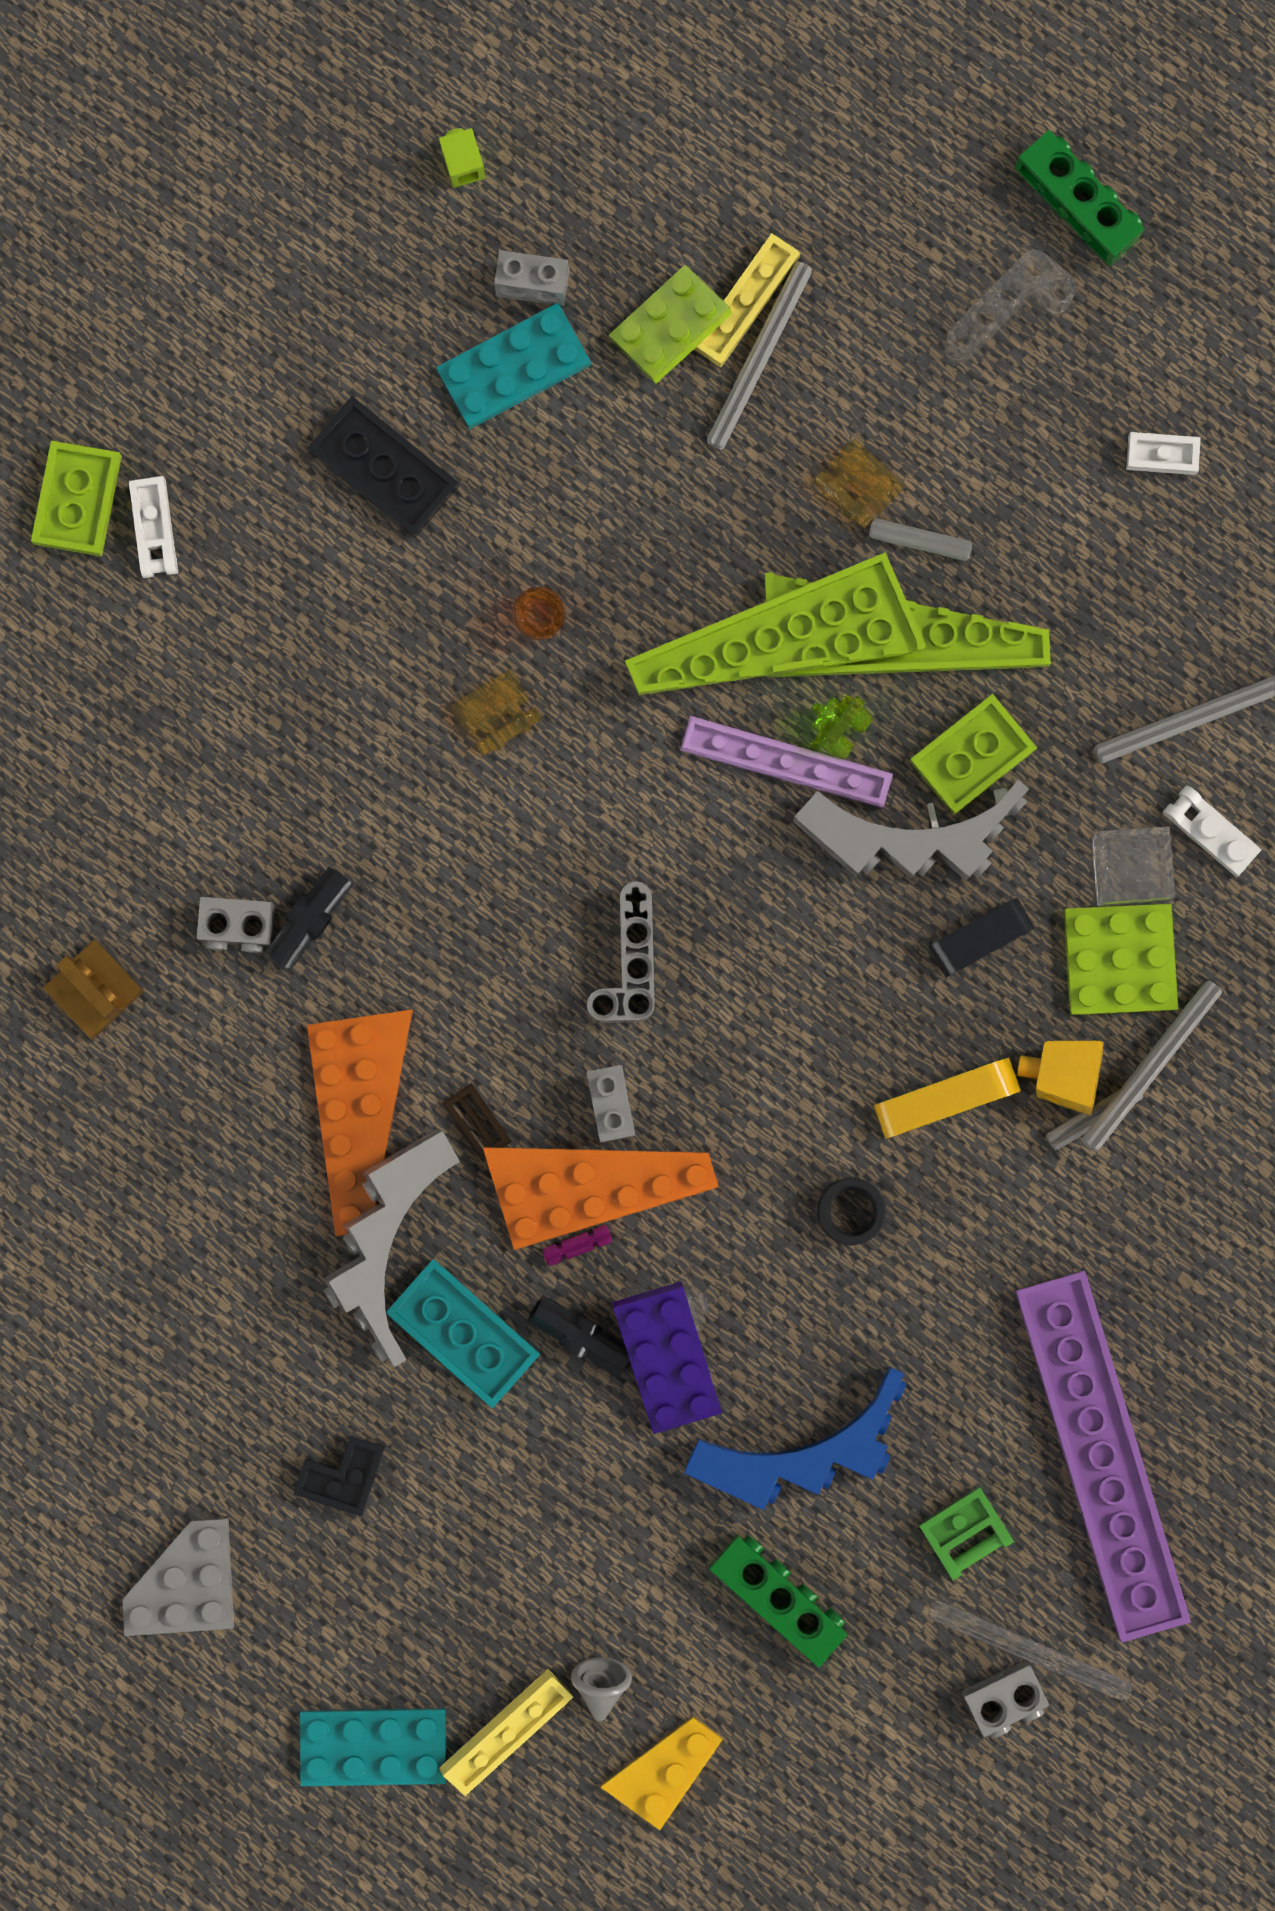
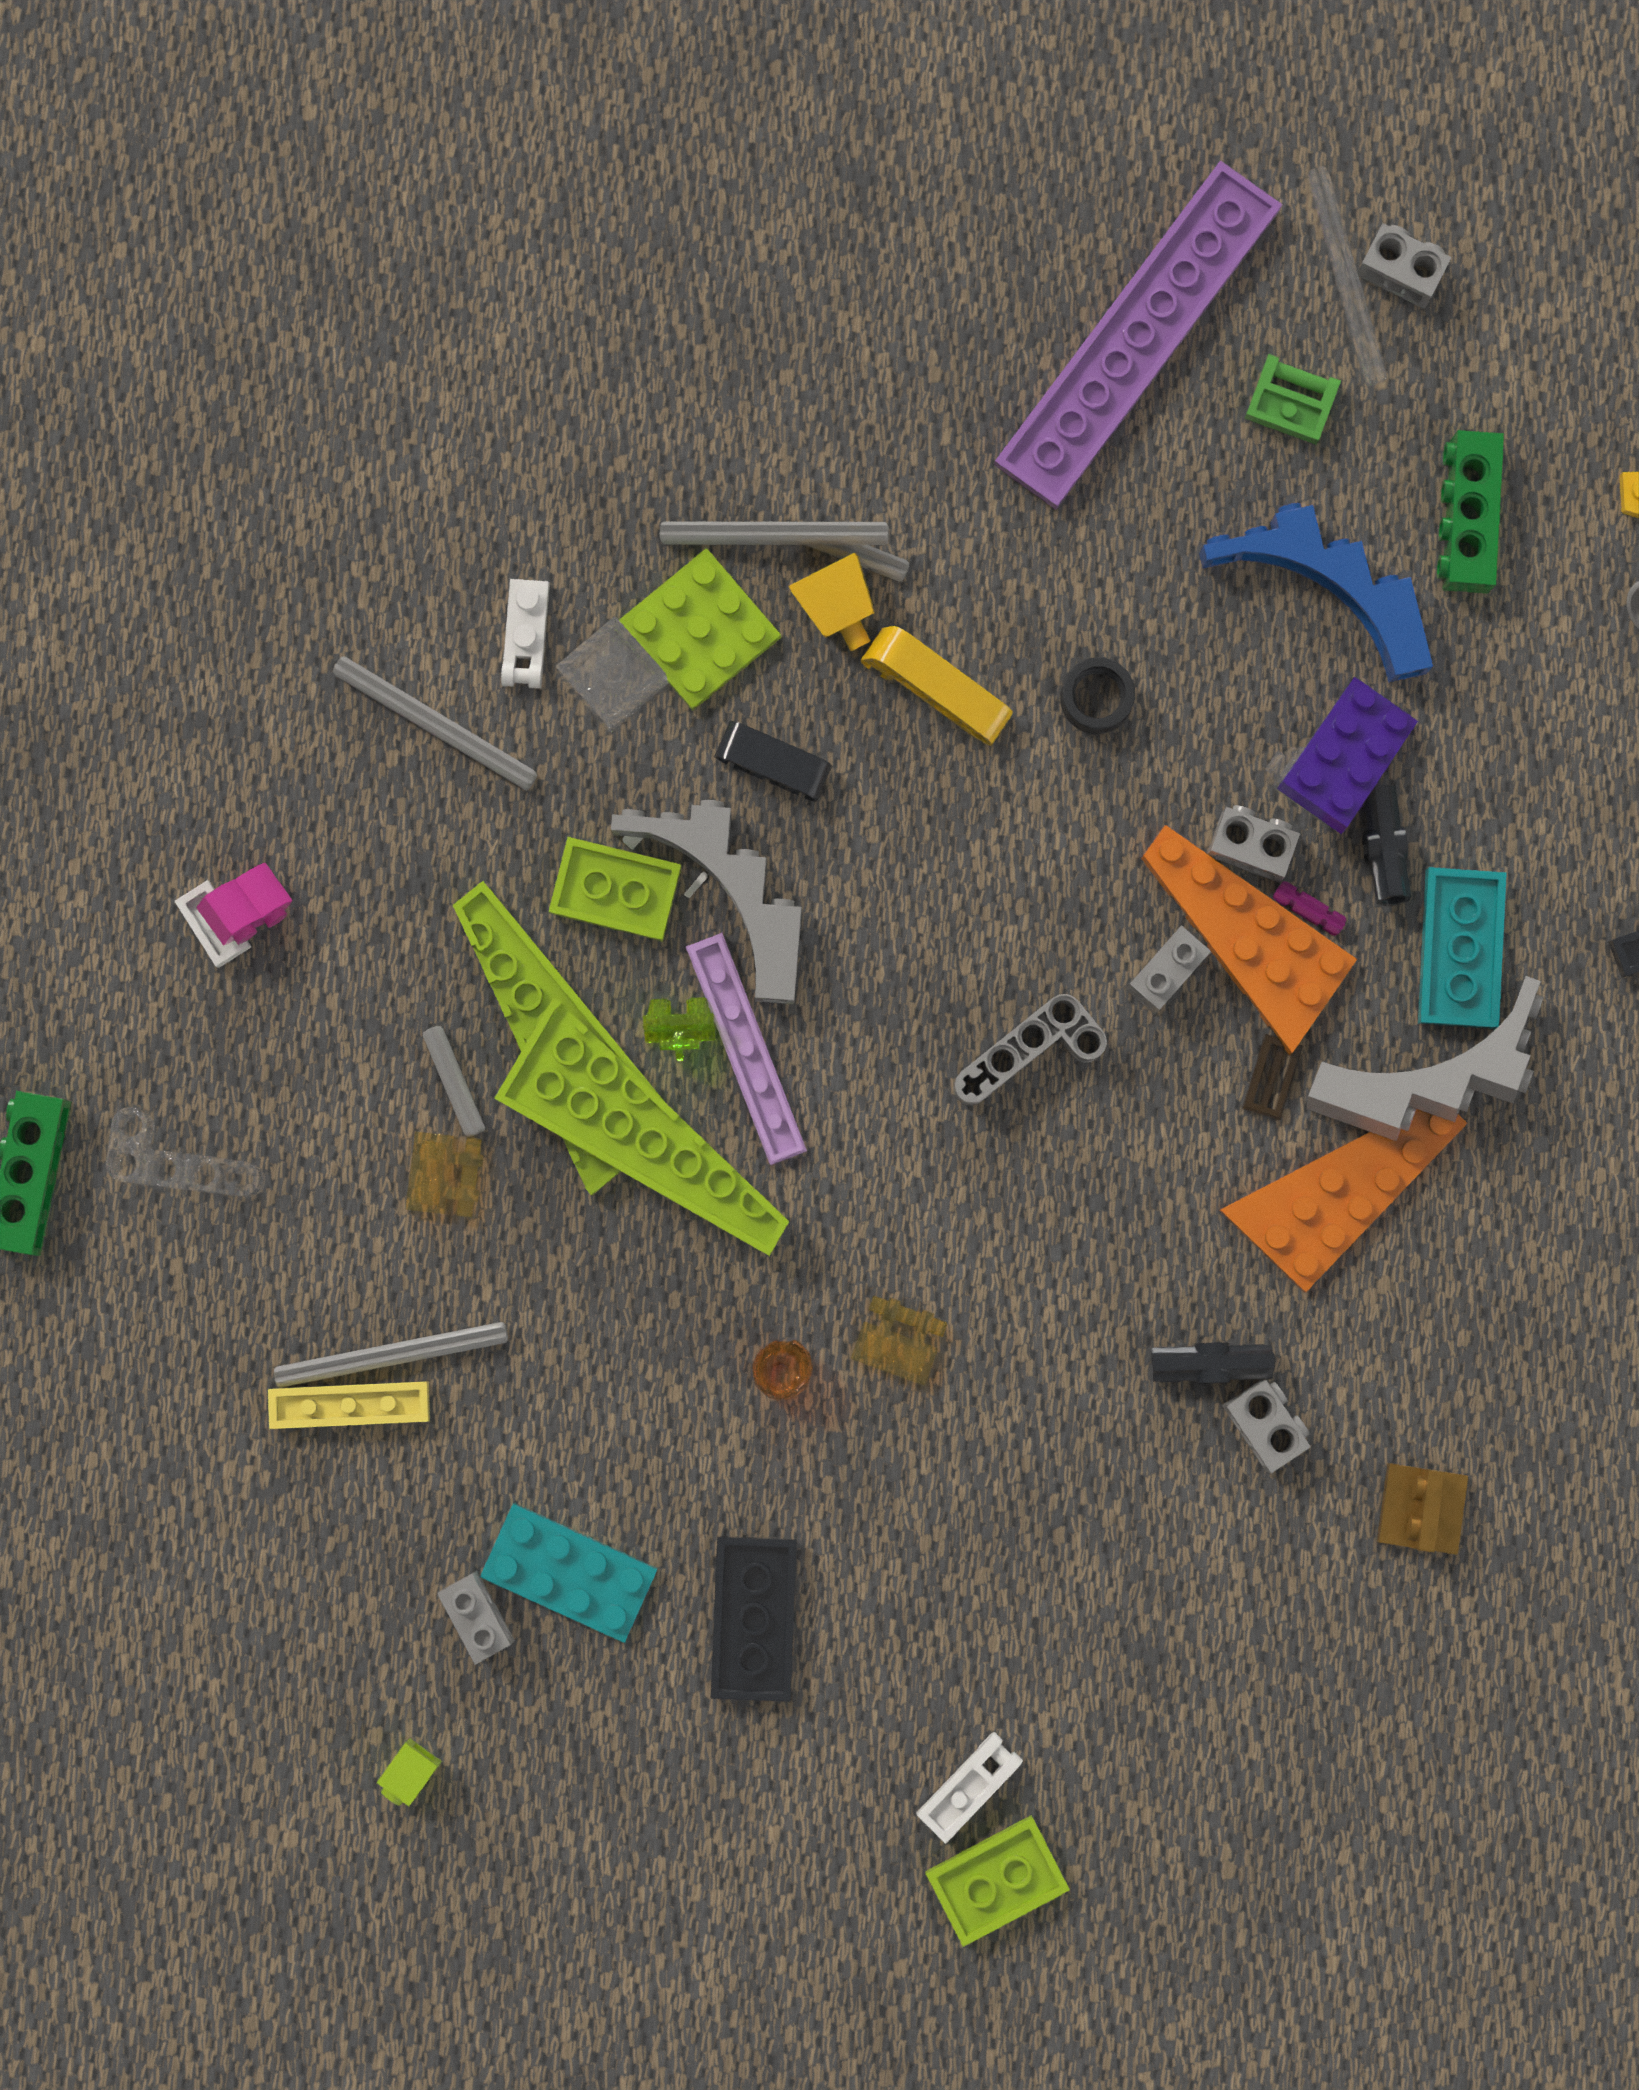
camera: 135 degrees left, 0 degrees up
(650, 1231) = (1250, 854): none -> light grey brick
(670, 324) = (423, 1456): lime plate -> none
(1159, 483) = (244, 905): none -> dark pink brick

